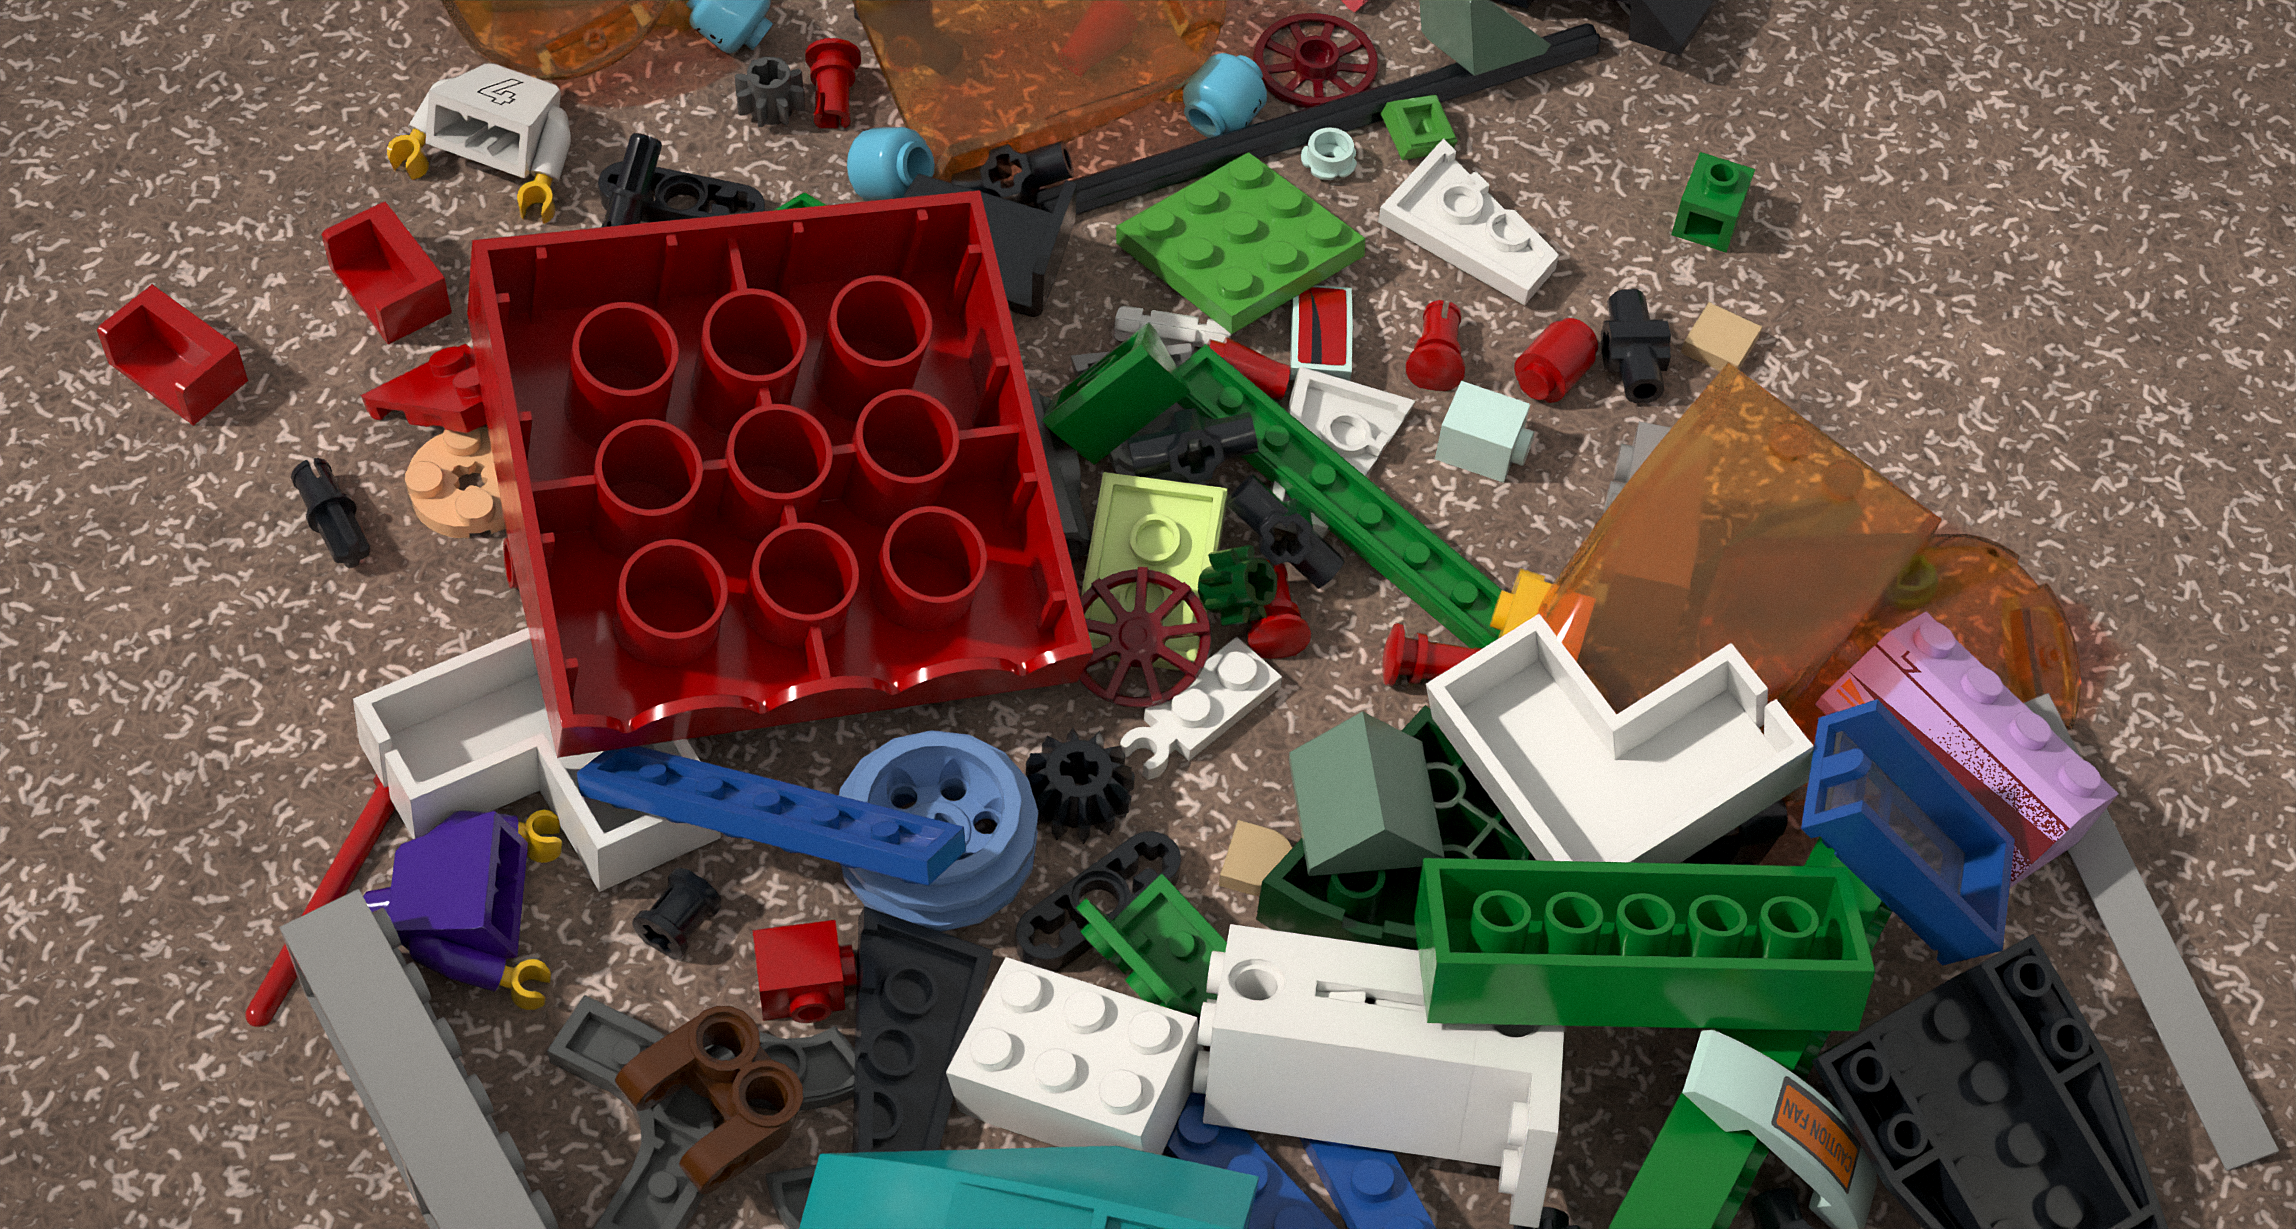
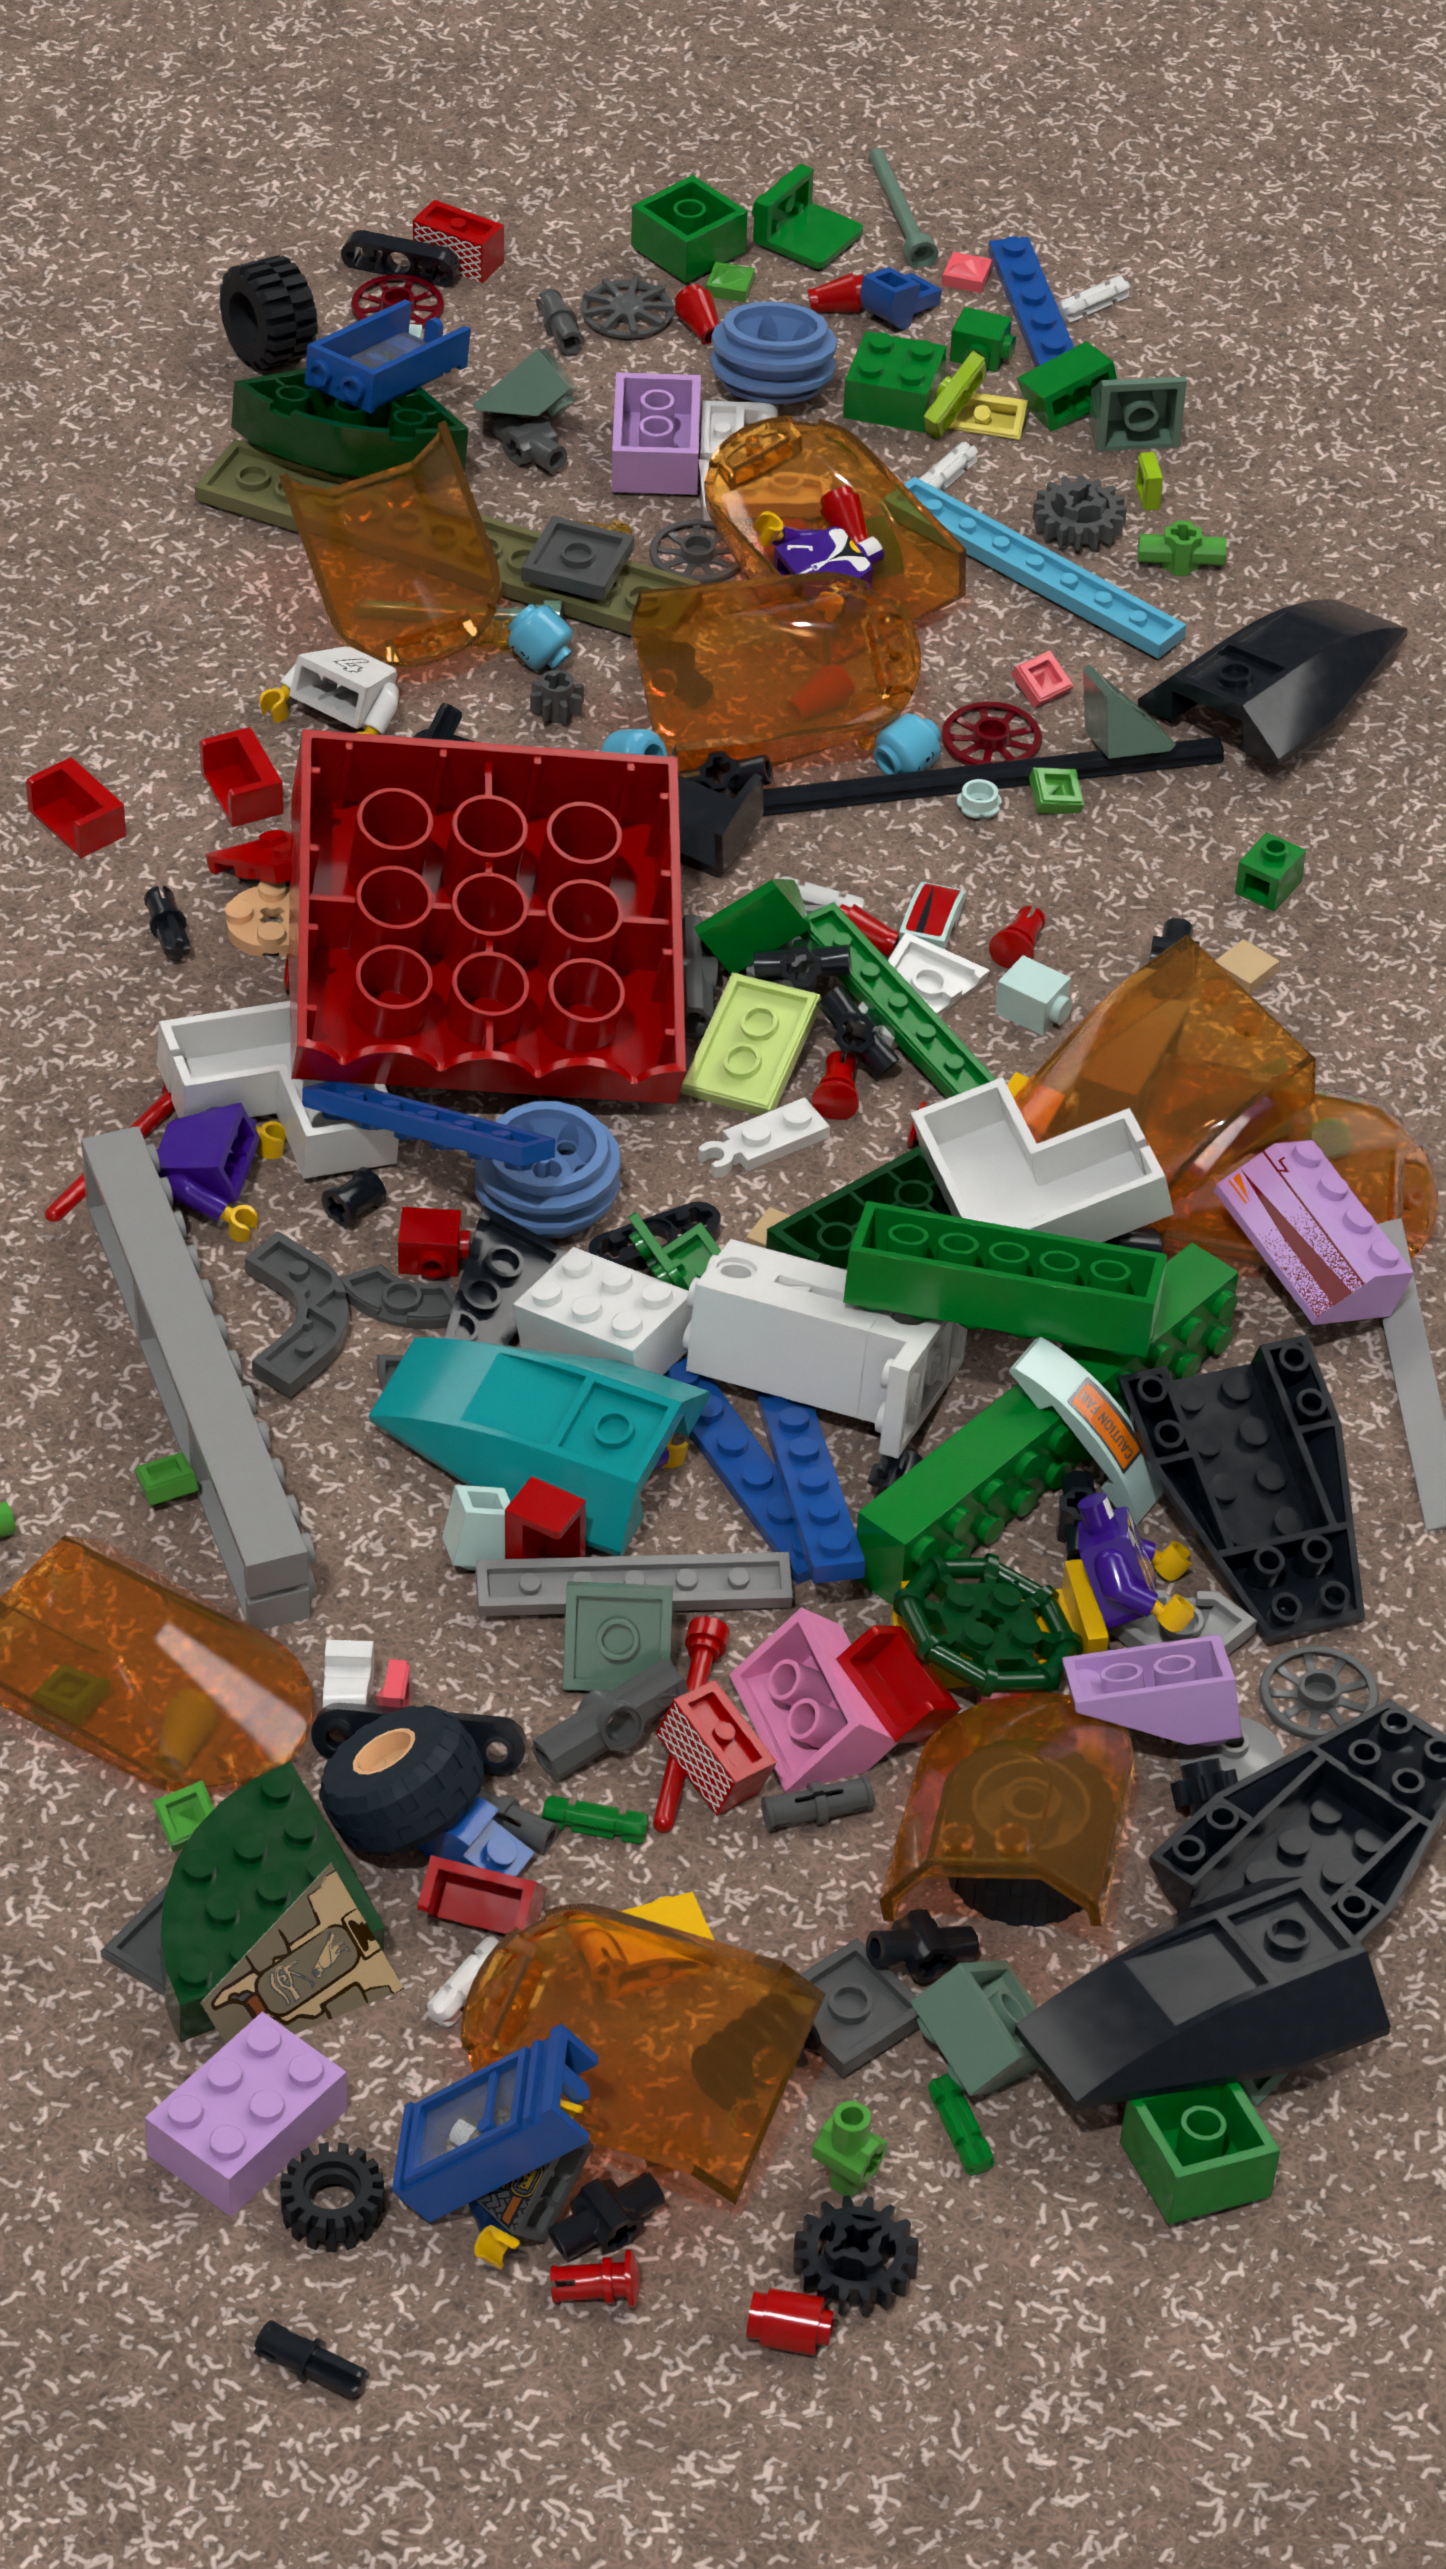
camera: 15 degrees right, 10 degrees down
(729, 1084) = (361, 1277): reddish brown piece -> none
(833, 73) = (609, 691): red pin -> none
(1103, 790) = (659, 1166): black gear -> none
(1140, 636) = (730, 1081): dark red wheel -> none
(1237, 585) = (809, 1056): dark green gear -> none
(1240, 242) = (888, 846): bright green plate -> none
(1364, 799) = (847, 1175): sand green slope -> none
(1464, 225) = (1070, 862): white wing -> none
(1556, 360) = (1108, 958): red brick -> none
(1909, 831) = (1231, 1251): blue door -> none

